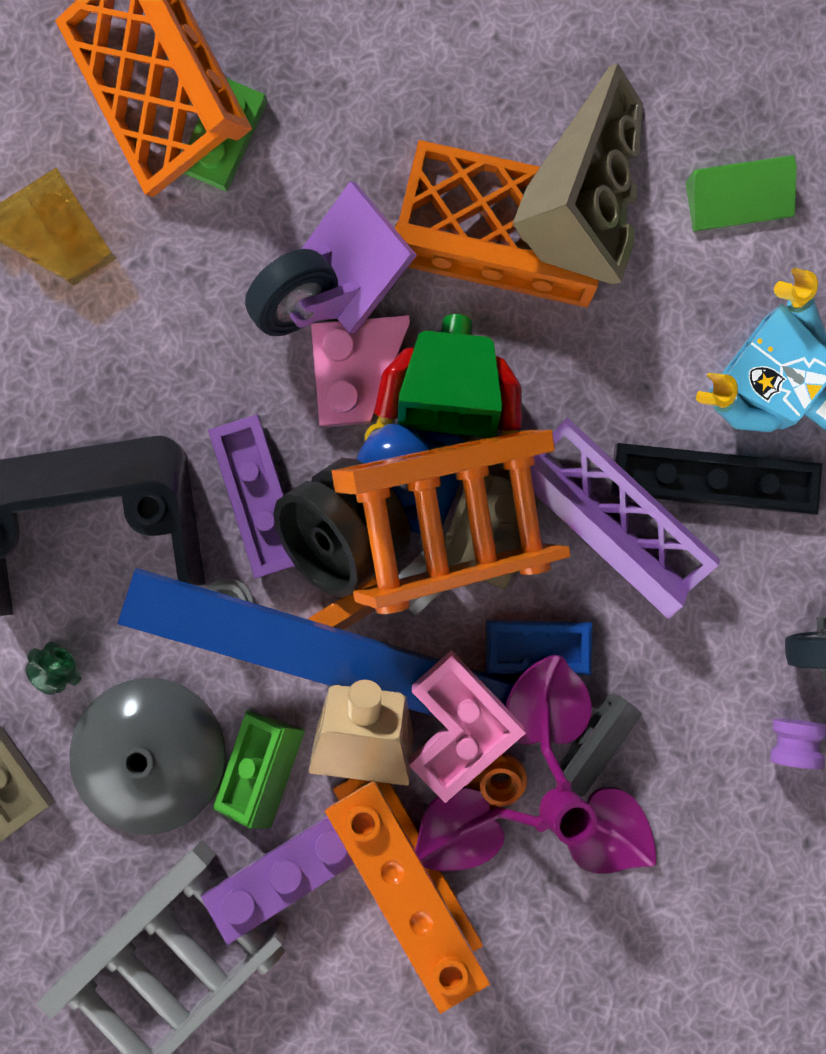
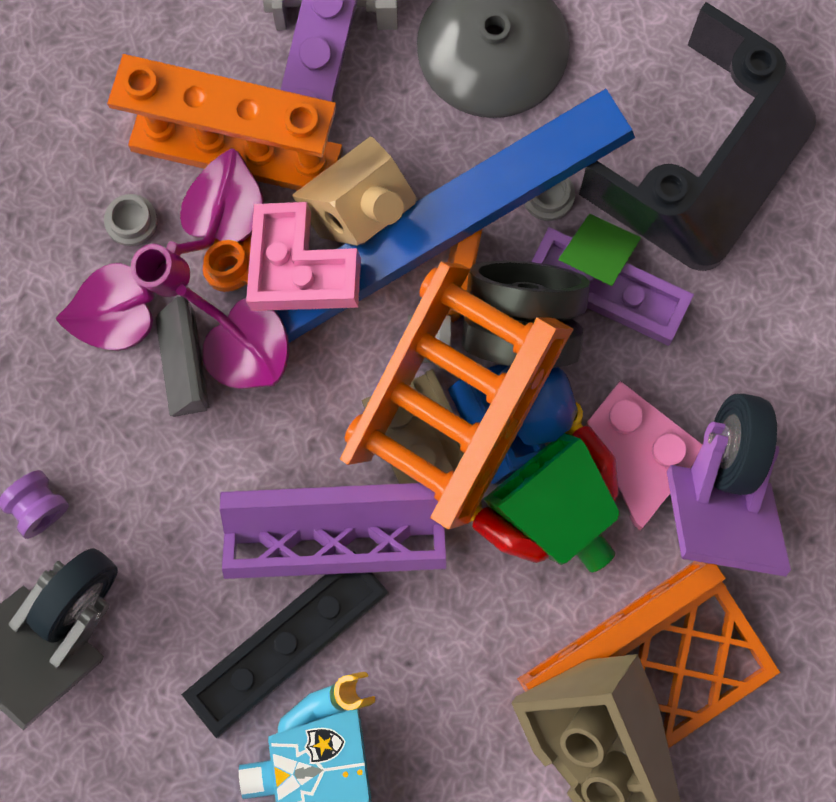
camera: 135 degrees right, 10 degrees down
(51, 669) = (620, 33): clear green plate -> none
(237, 525) = (600, 249): none -> bright green sticker
(258, 770) = (406, 109): bright green slope -> none
(520, 644) = (311, 372): blue plate -> none
(534, 886) = (130, 220): none -> light grey plate

